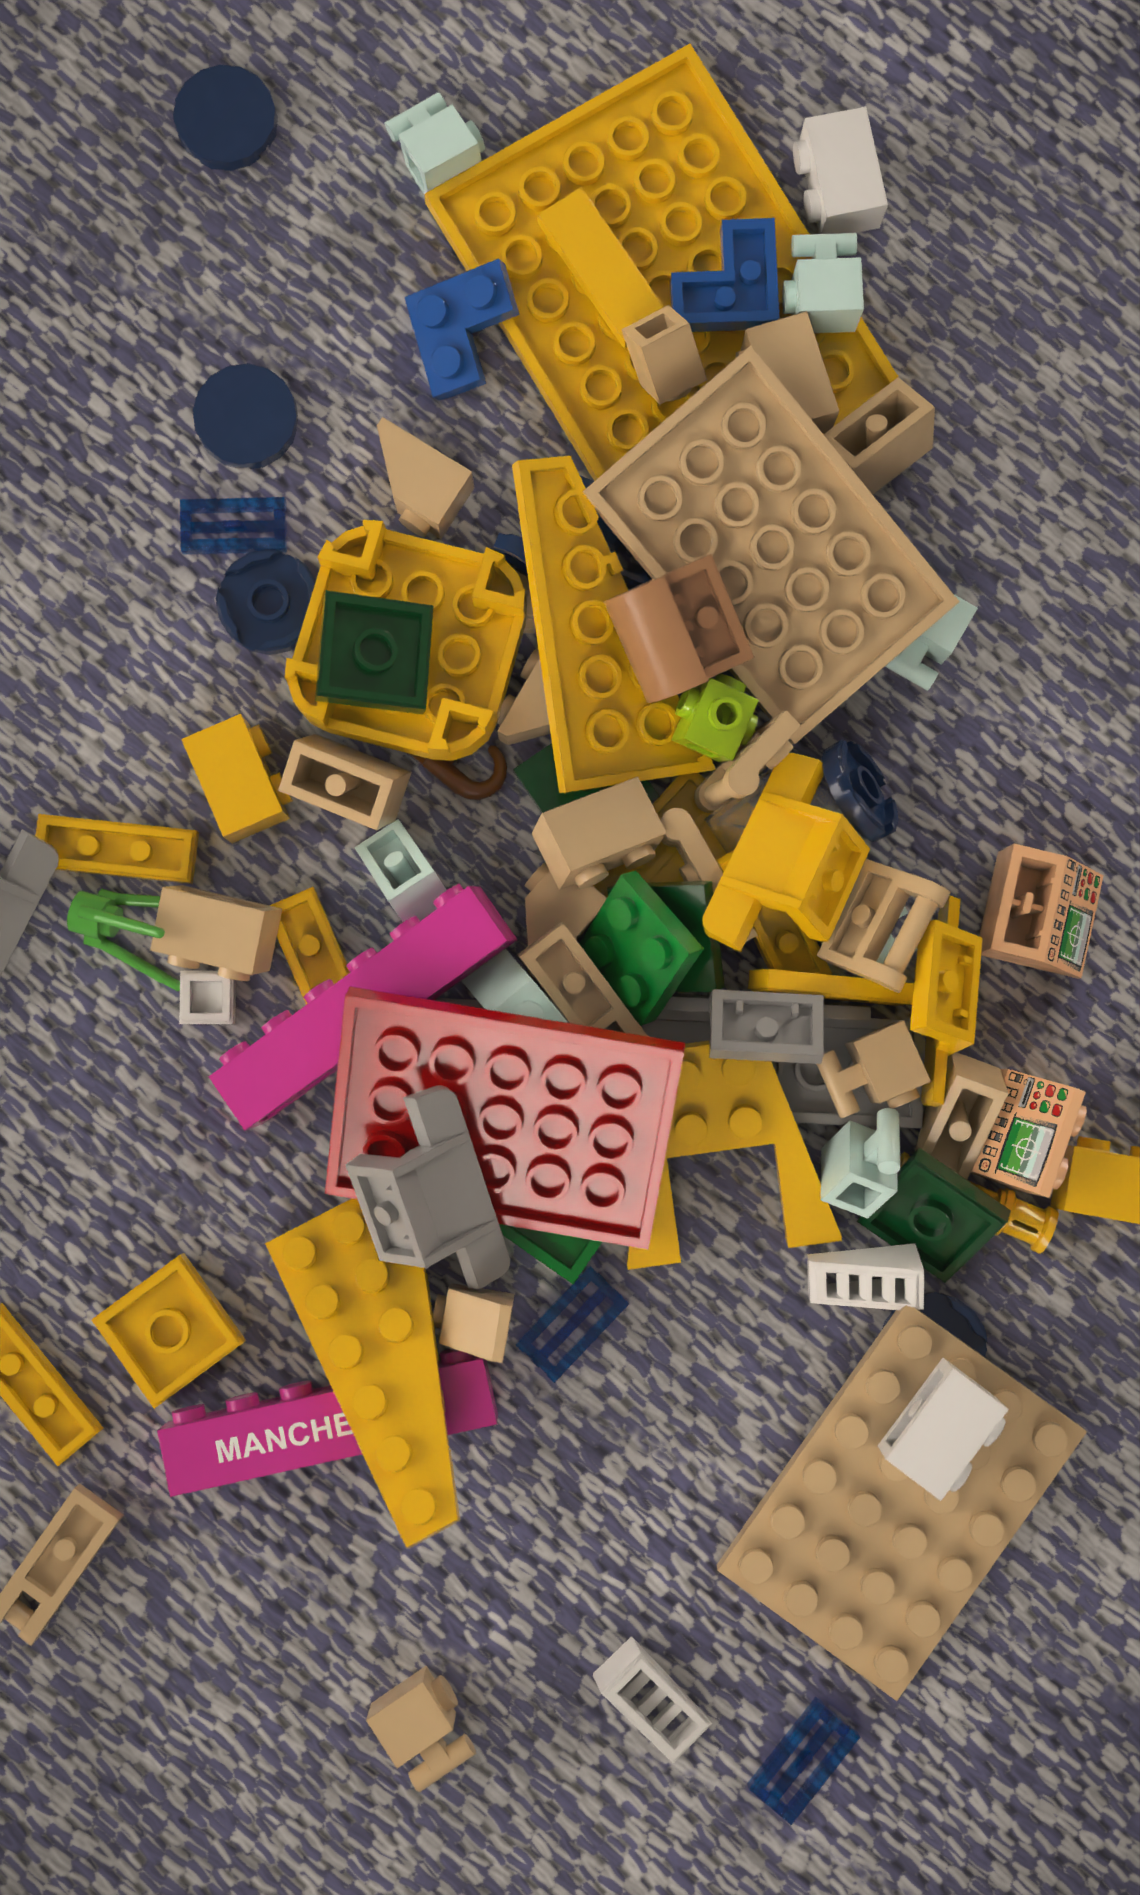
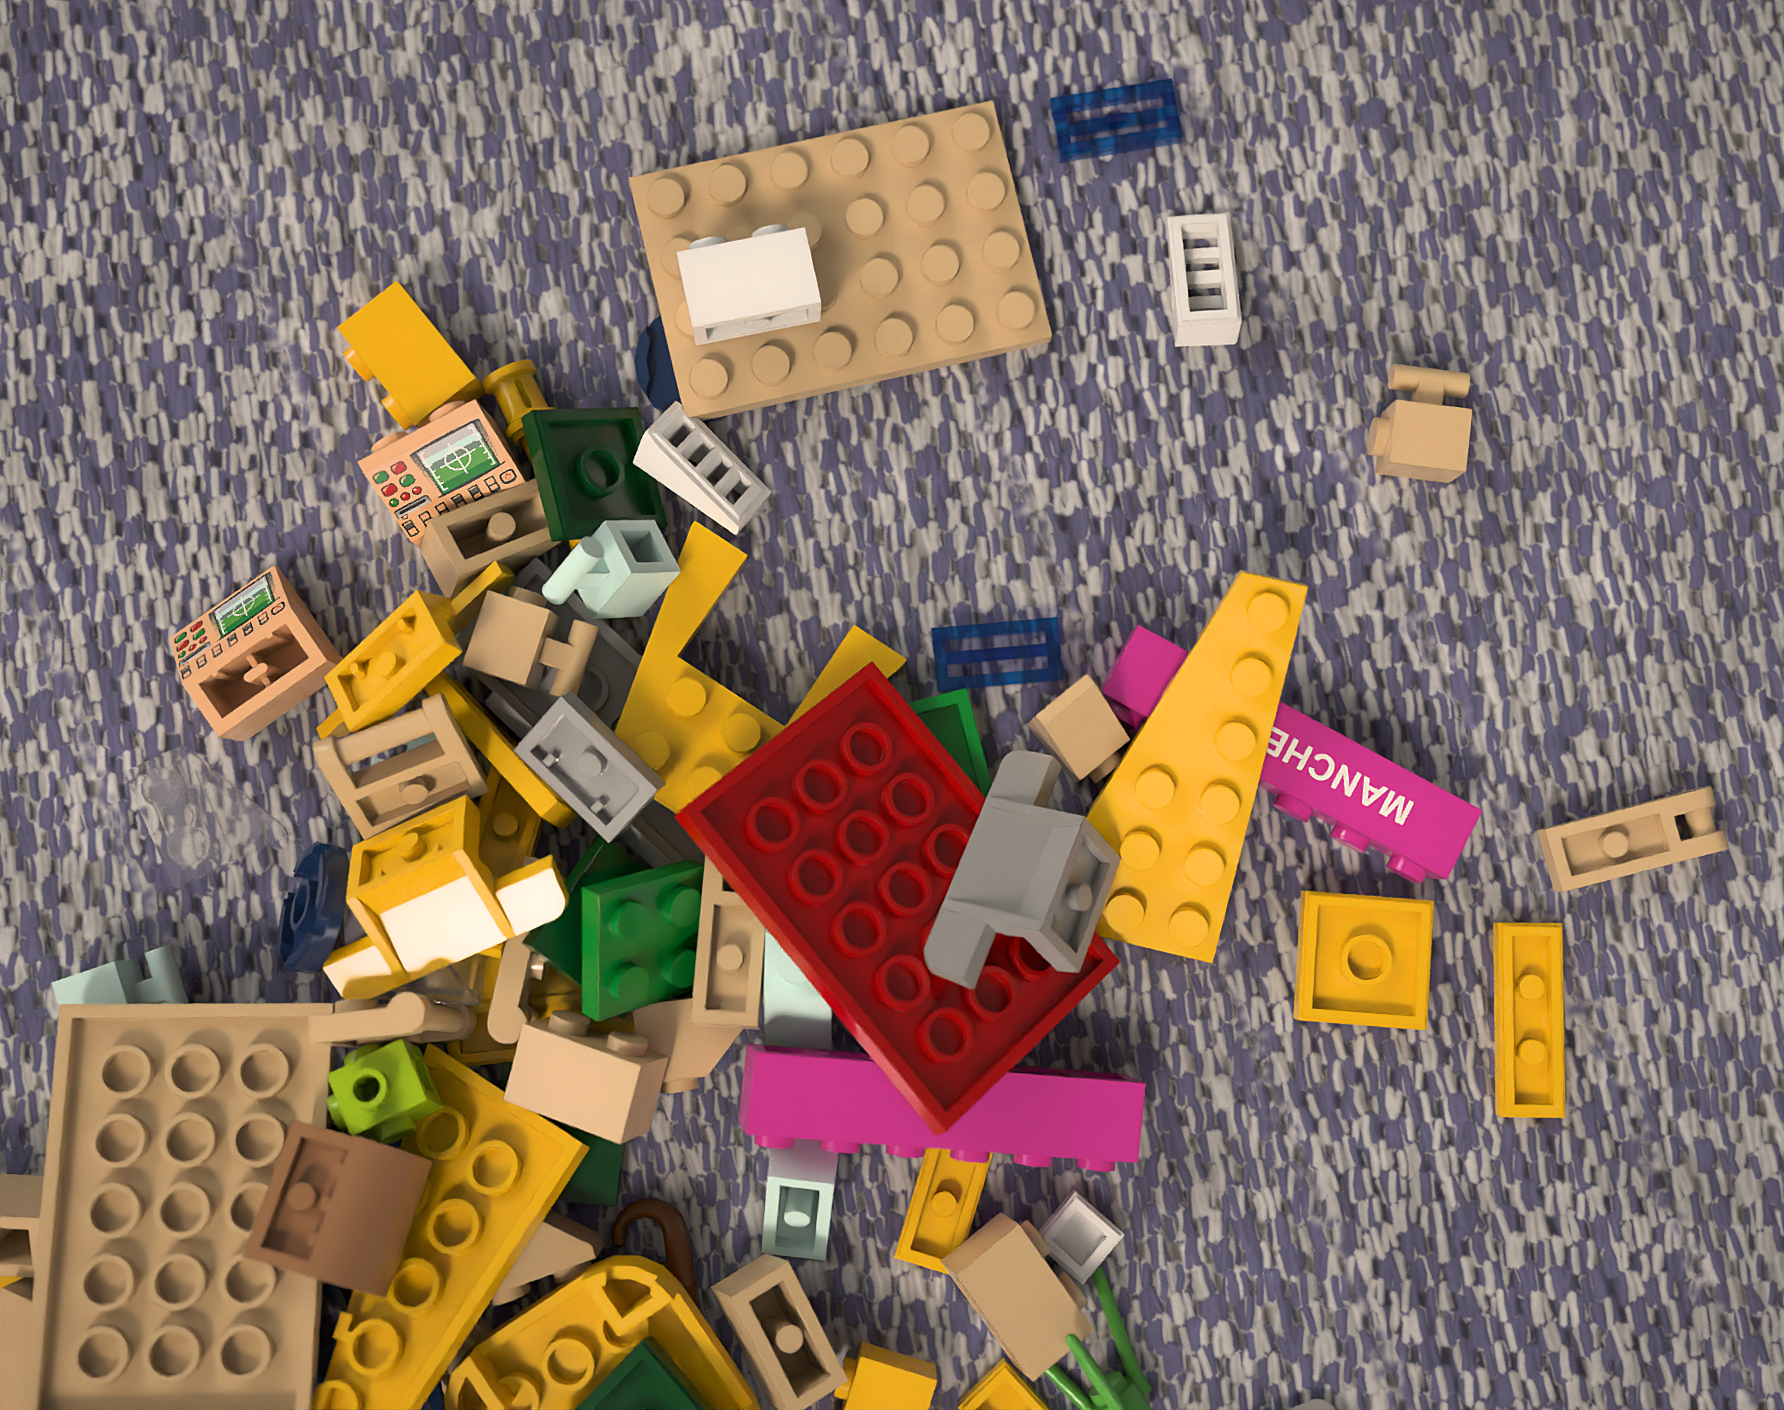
camera: 135 degrees left, 0 degrees up
(983, 782) = (198, 815): none -> clear wing

